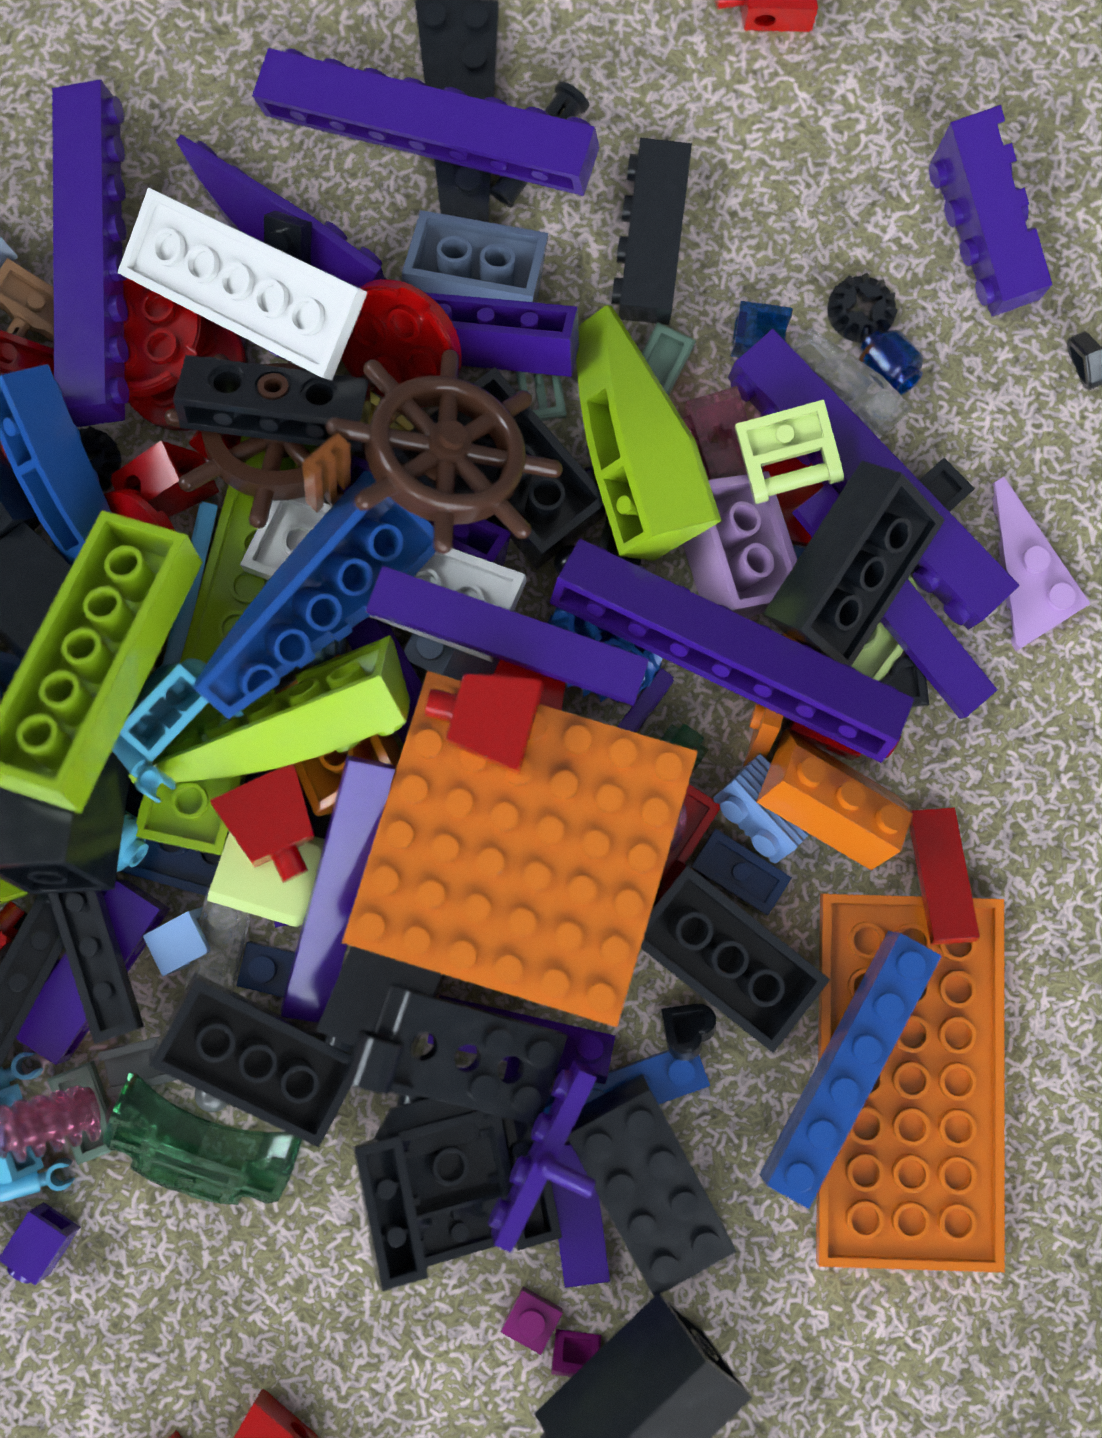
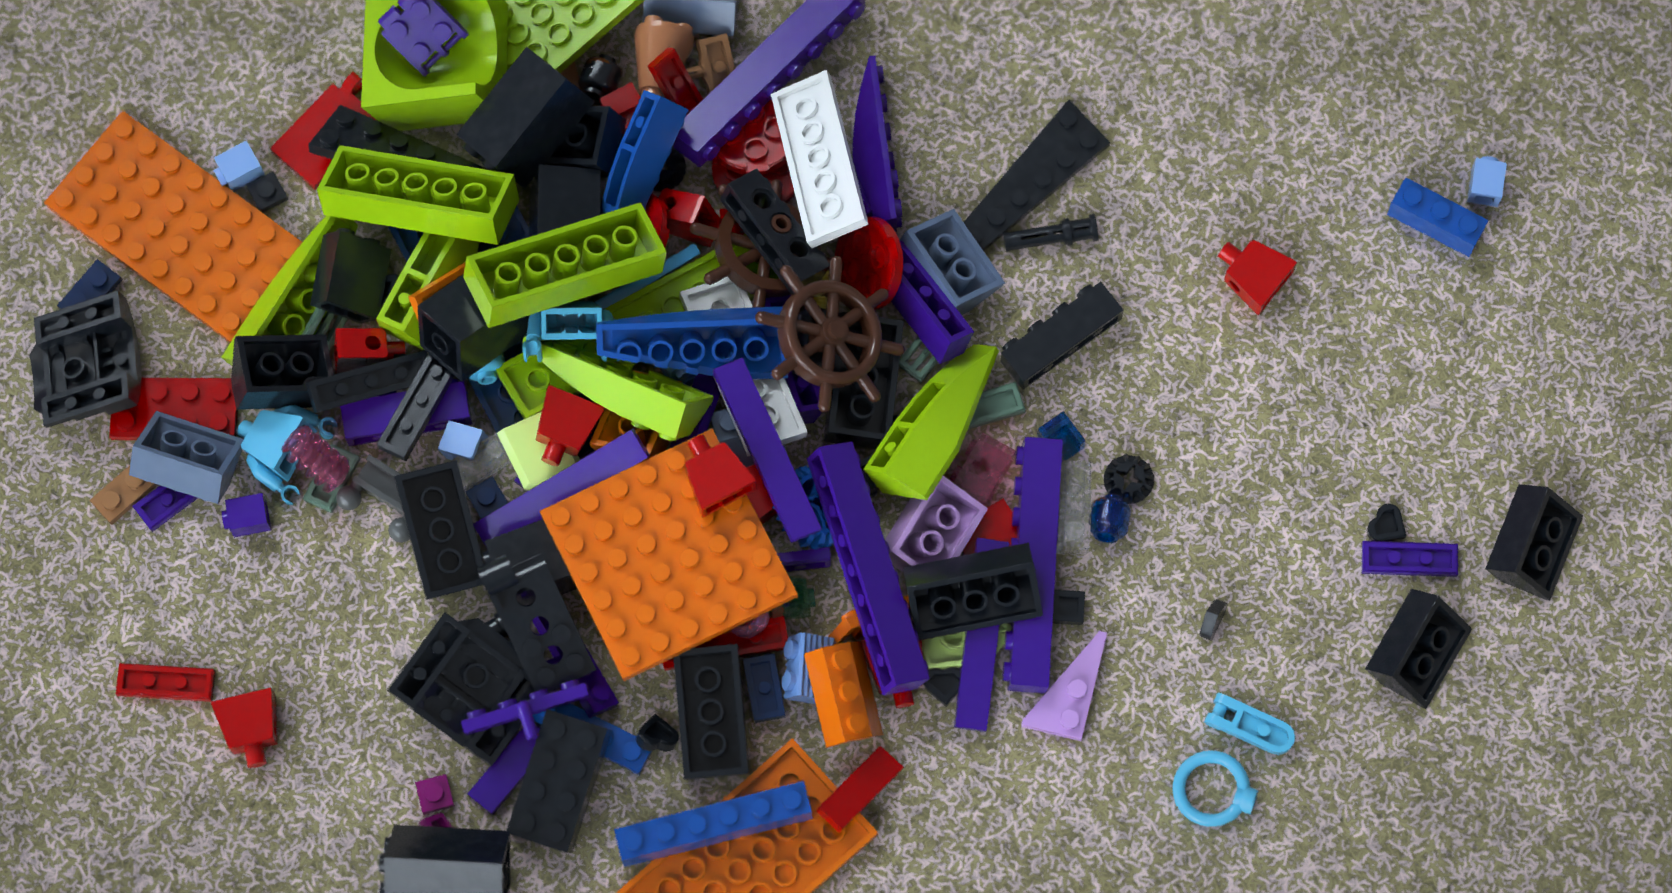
camera: 45 degrees right, 10 degrees down
(197, 1154) = (361, 550): clear green windscreen -> none
(288, 234) = (867, 160): black plate -> none
(334, 468) = (757, 296): dark orange tile -> none
(427, 120) = (1003, 169): dark purple brick -> none
(786, 437) = (1005, 495): yellowish green plate -> none
(989, 212) = (1239, 496): dark purple wedge -> none

